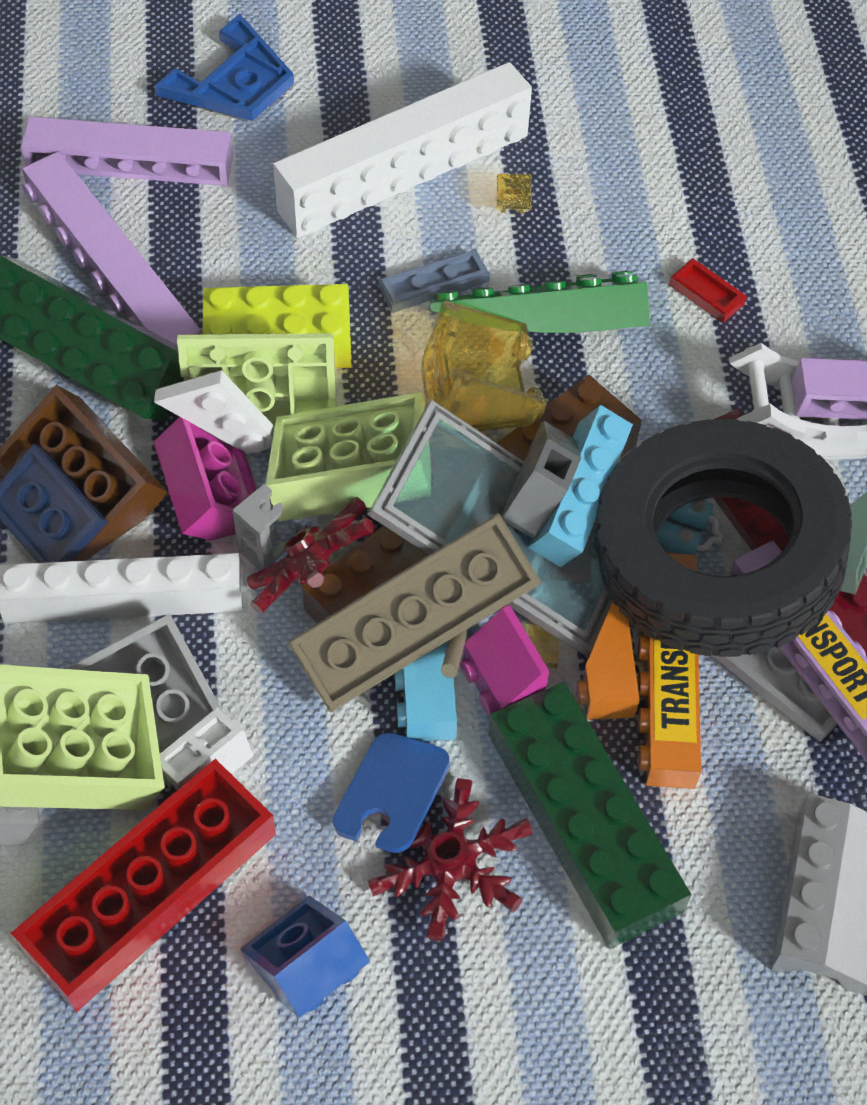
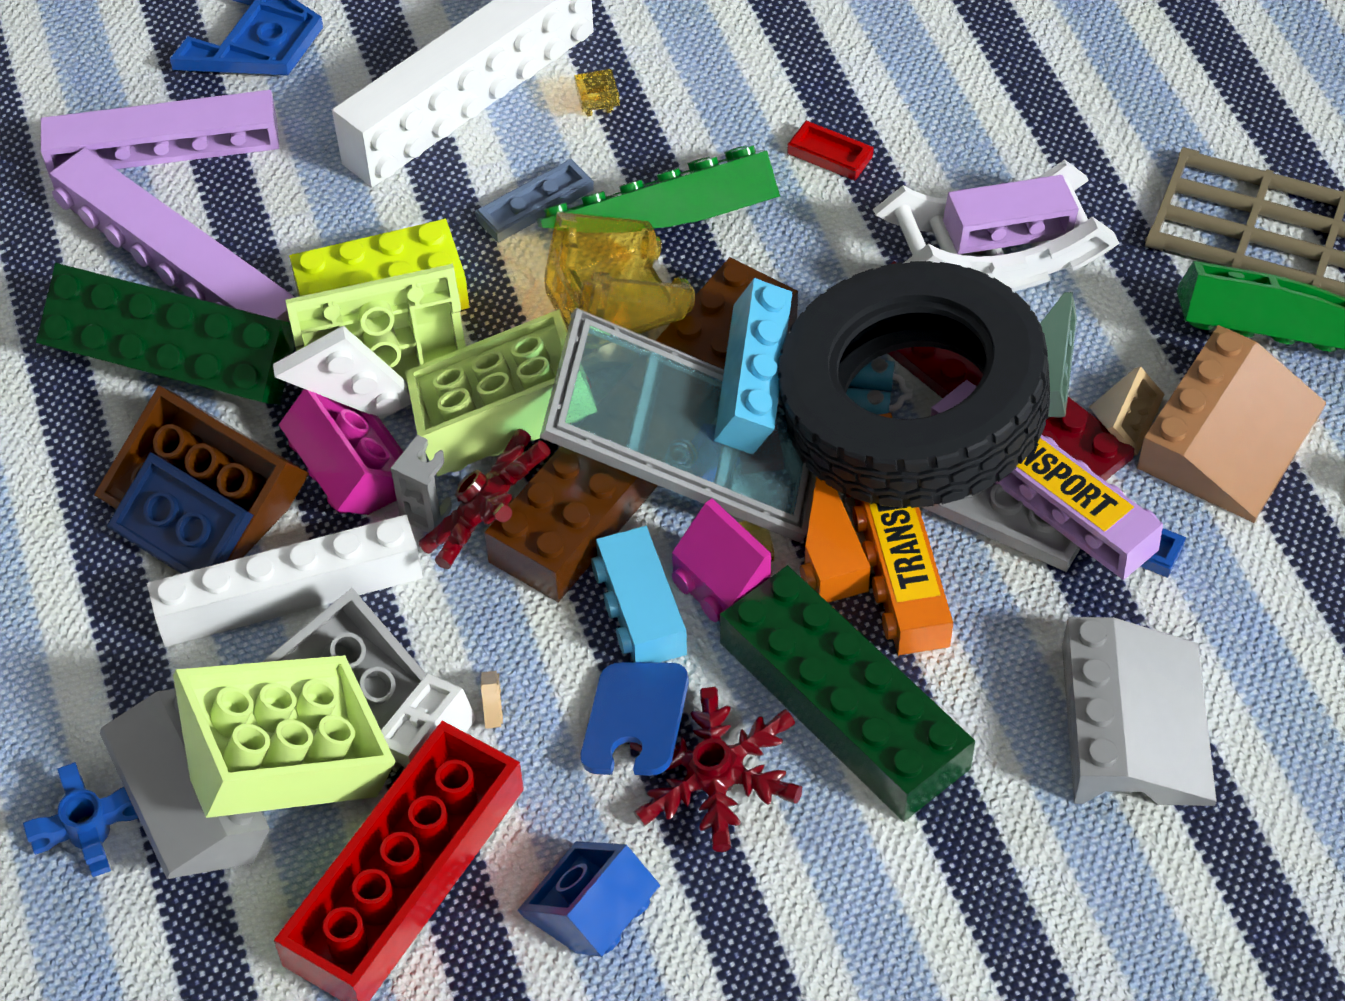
camera: 10 degrees left, 5 degrees down
(268, 741) = (491, 699): none -> tan tile
(414, 612) = (613, 529): dark tan tile -> none
(453, 655) = (664, 549): dark tan bar -> none
(542, 480) = (712, 367): dark grey slope -> none

